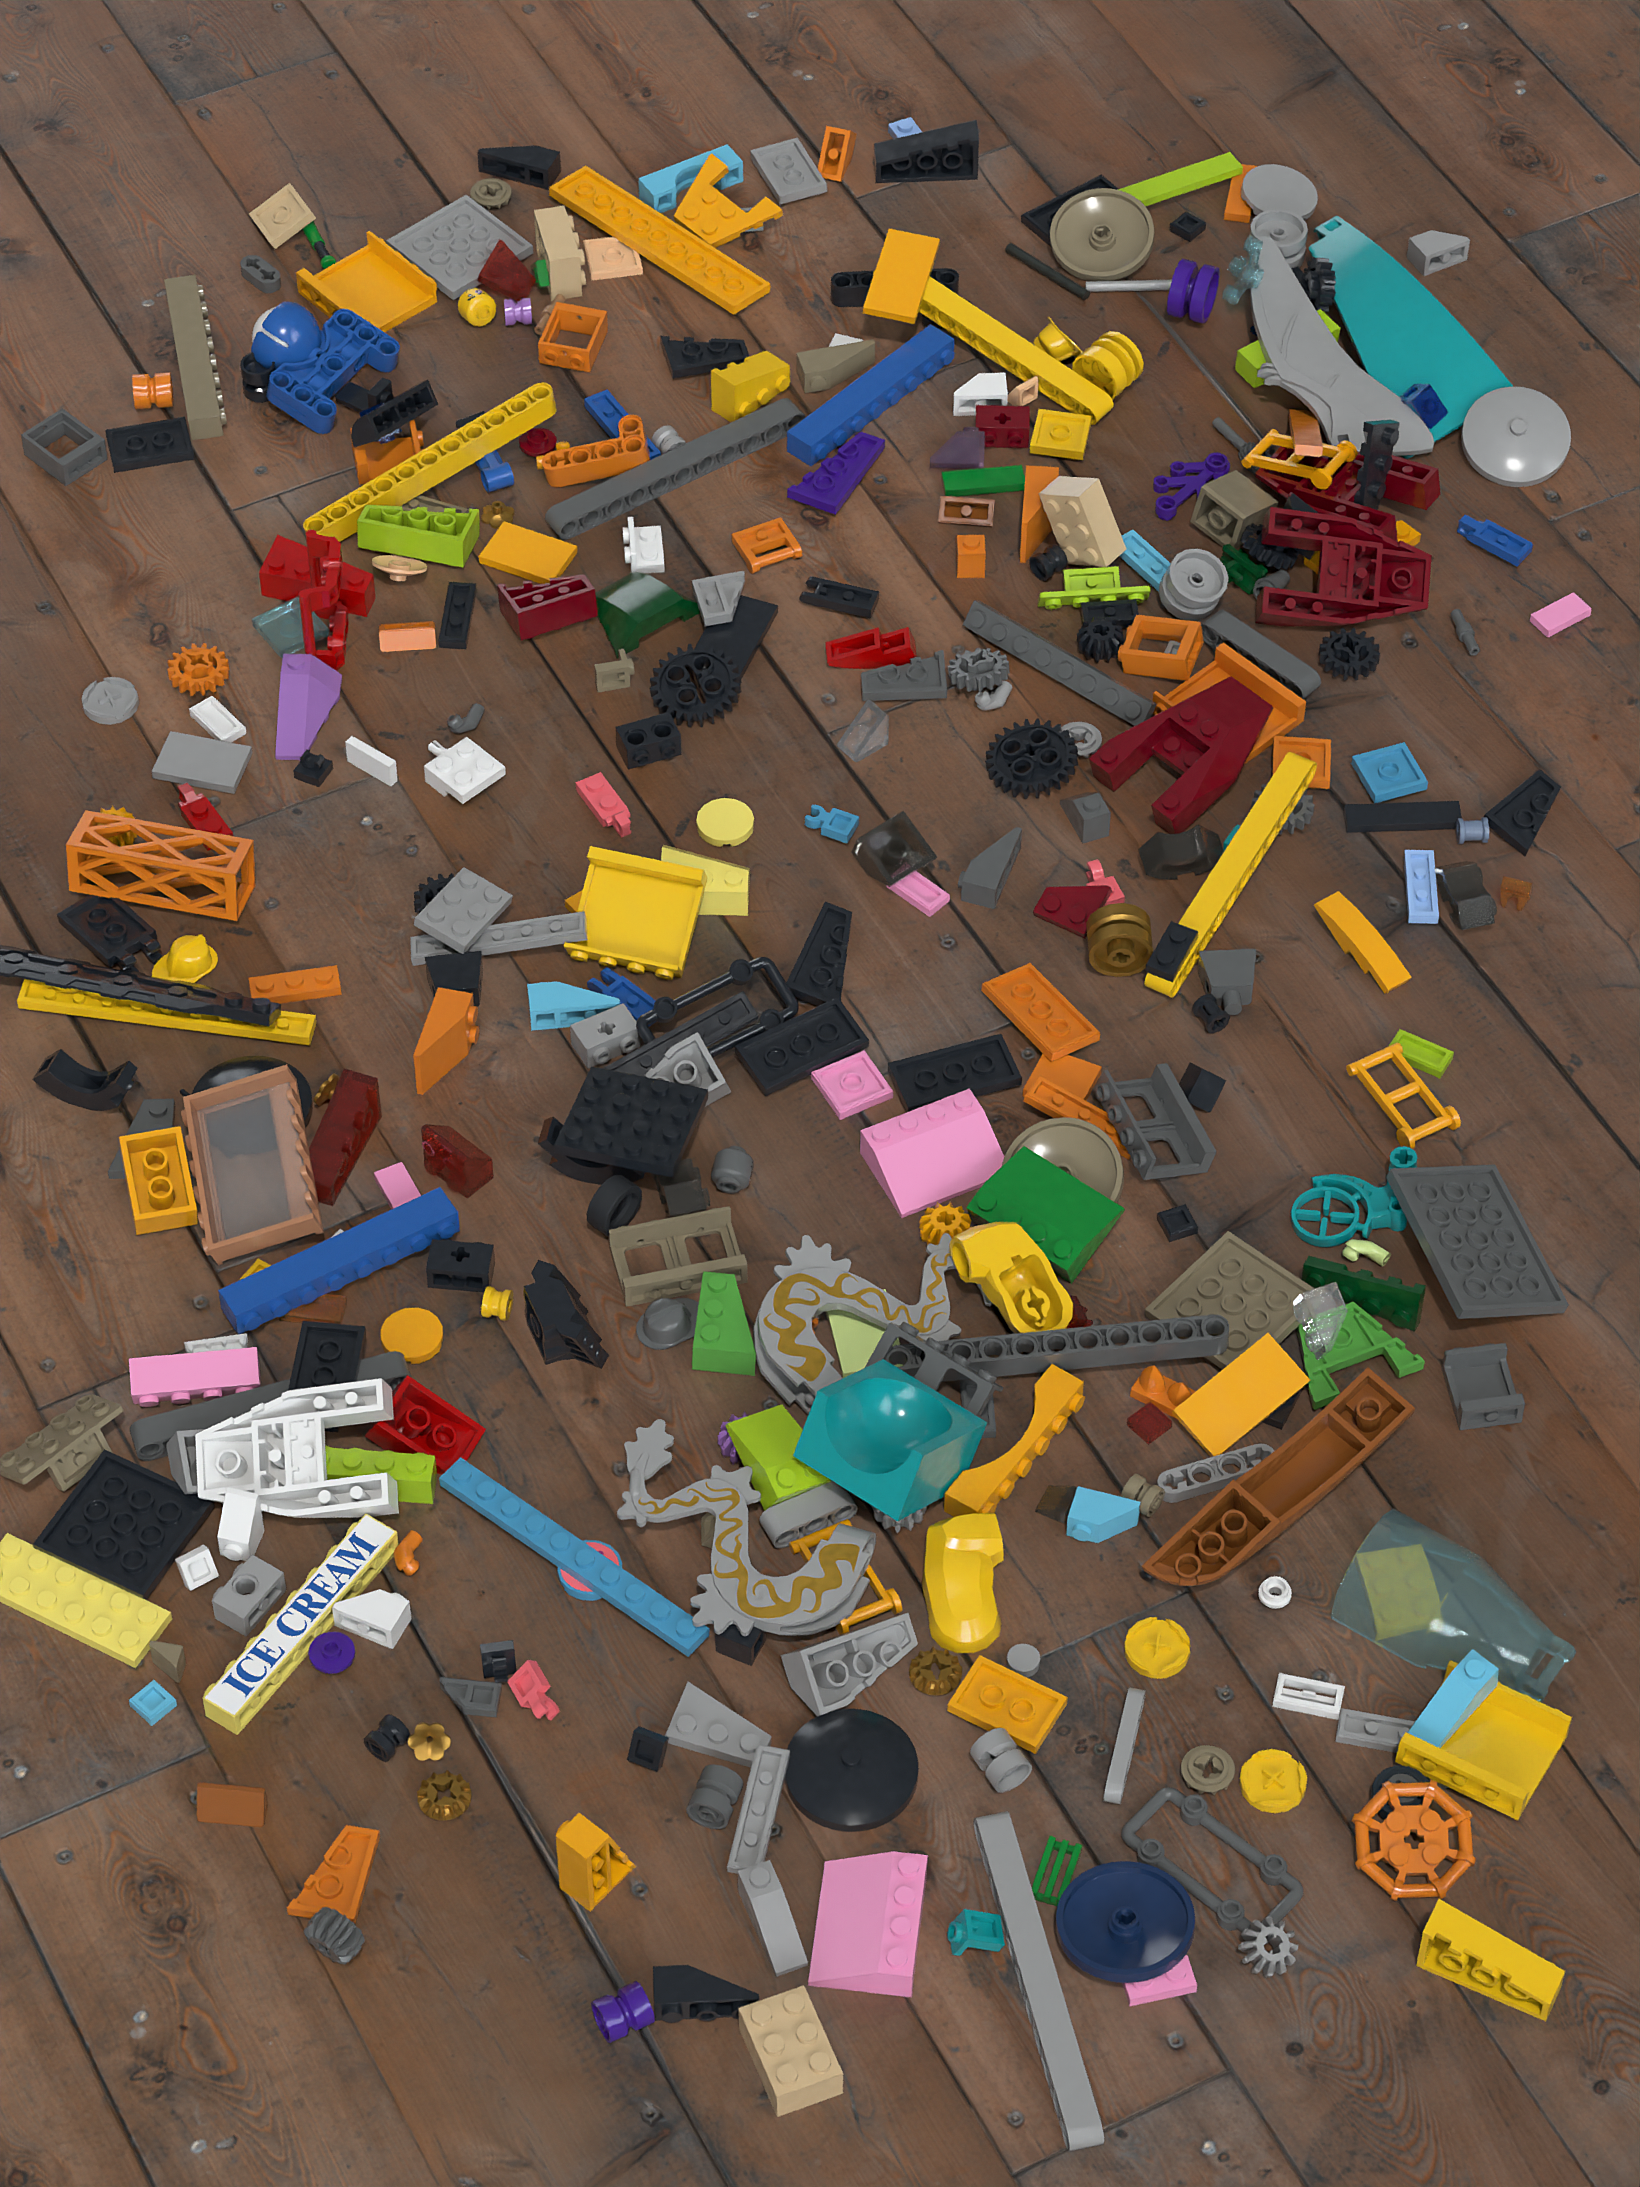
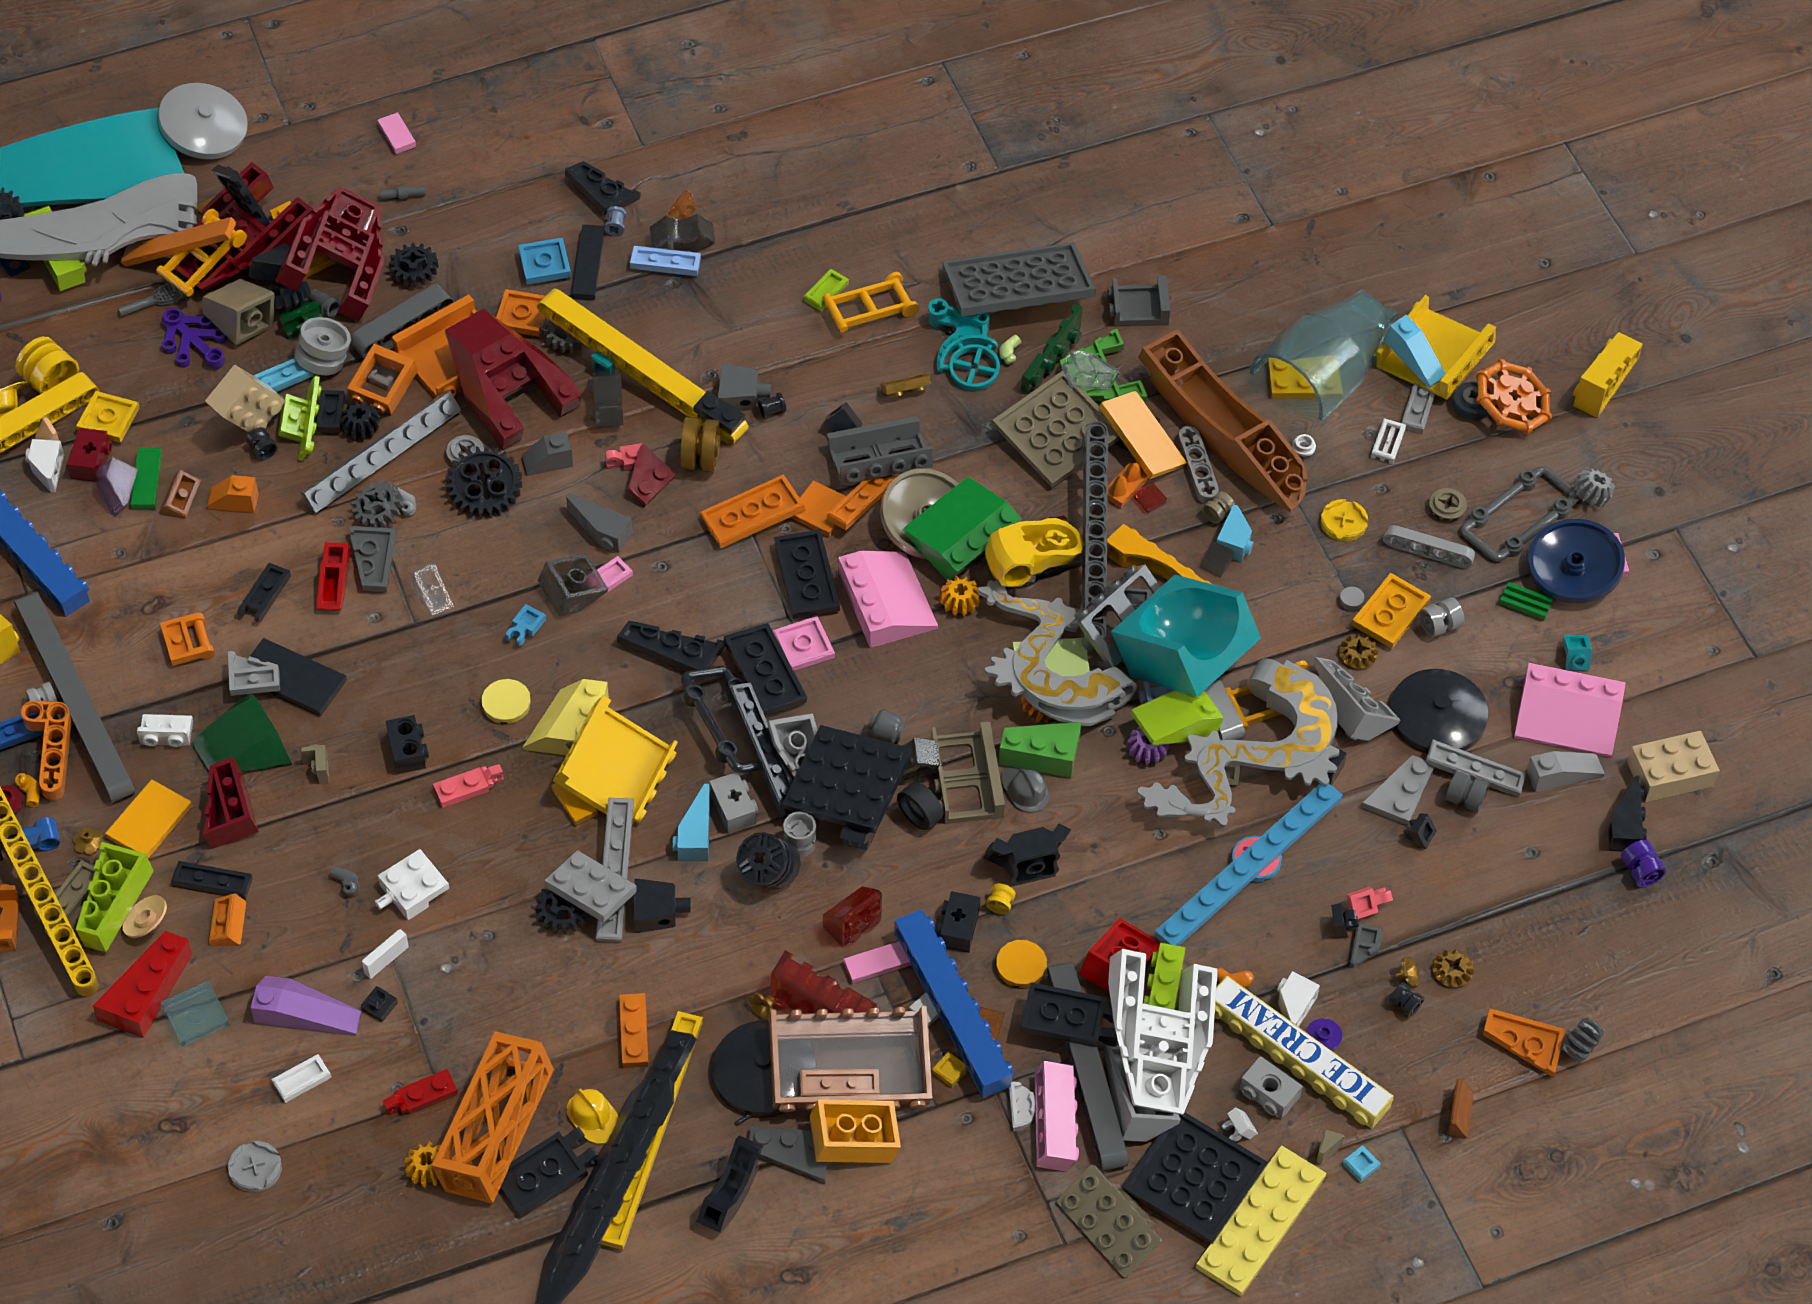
camera: 85 degrees left, 5 degrees up
(198, 669) = (238, 1090): orange gear -> none
(202, 762) = (351, 1092): light grey tile -> none
(221, 1162) = (839, 1082): none -> nougat tile
(240, 1525) = (1212, 1087): white slope -> none
(323, 599) = (207, 968): red piece -> none
(445, 1036) = (725, 912): orange slope -> none
(513, 1064) = (781, 860): none -> black wheel
(560, 1094) = (801, 831): none -> light grey wheel
(588, 1861) = (1531, 866): light orange wedge -> none
(628, 993) = (689, 786): blue hinge -> none
(719, 675) = (354, 722): black gear -> none
(839, 475) = (113, 578): dark purple wing -> none
(960, 1581) = (1291, 624): yellow piece -> none
(1034, 518) = (207, 439): orange slope -> none
(1038, 1982) = (1613, 619): light grey beam -> none
(1177, 1223) = (967, 456): black tile -> none
(1272, 1137) = (896, 387): none -> pearl gold plate
(1273, 1781) = (1456, 470): yellow tile -> none
(1364, 942) = (718, 301): light orange slope -> none
(1425, 403) = (156, 165): clear blue bracket -> none
(1495, 539) = (307, 156): blue hinge -> none

